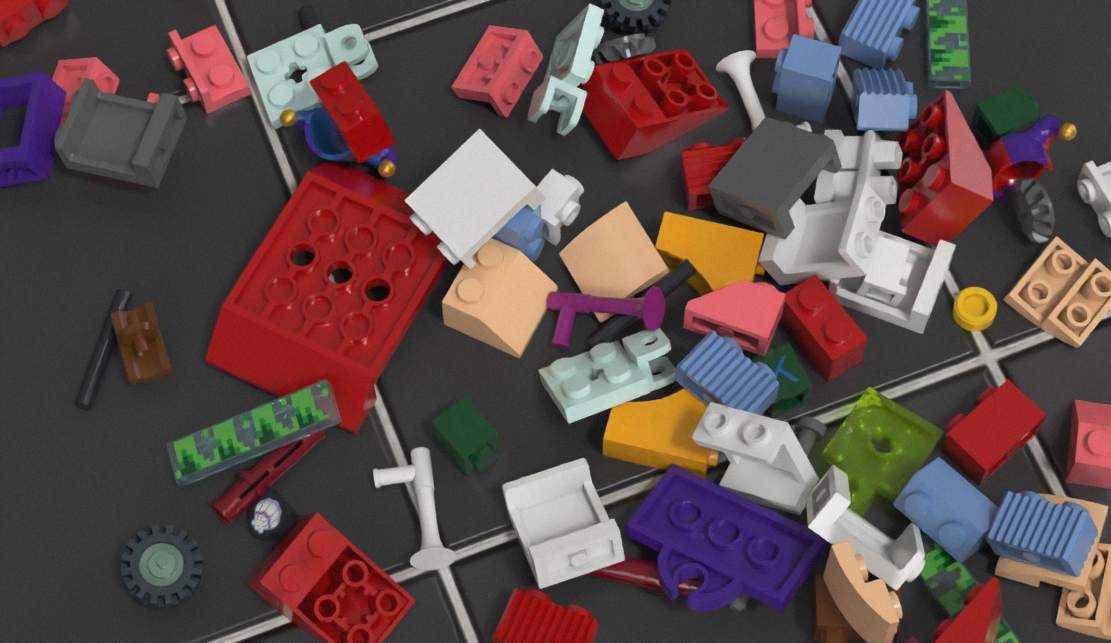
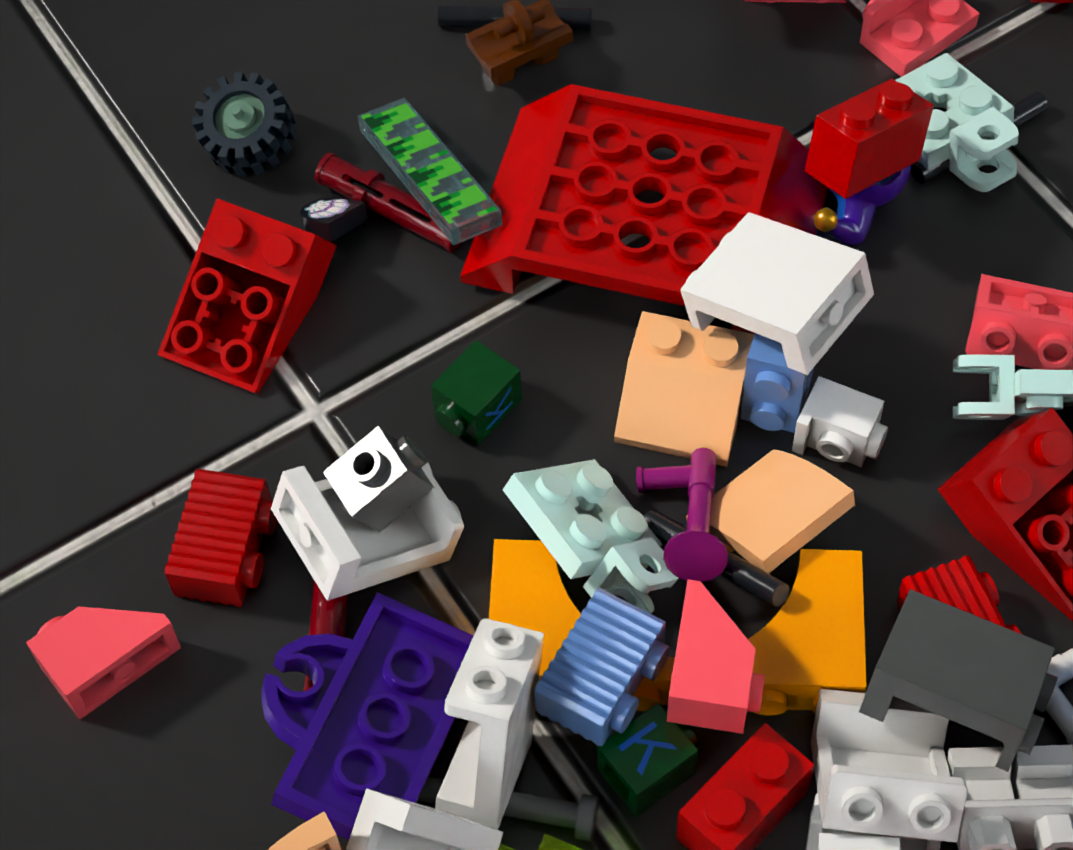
camera: 80 degrees right, 5 degrees down
(432, 552) = (421, 359): white piece -> none
(542, 501) = (380, 478): none -> dark grey brick

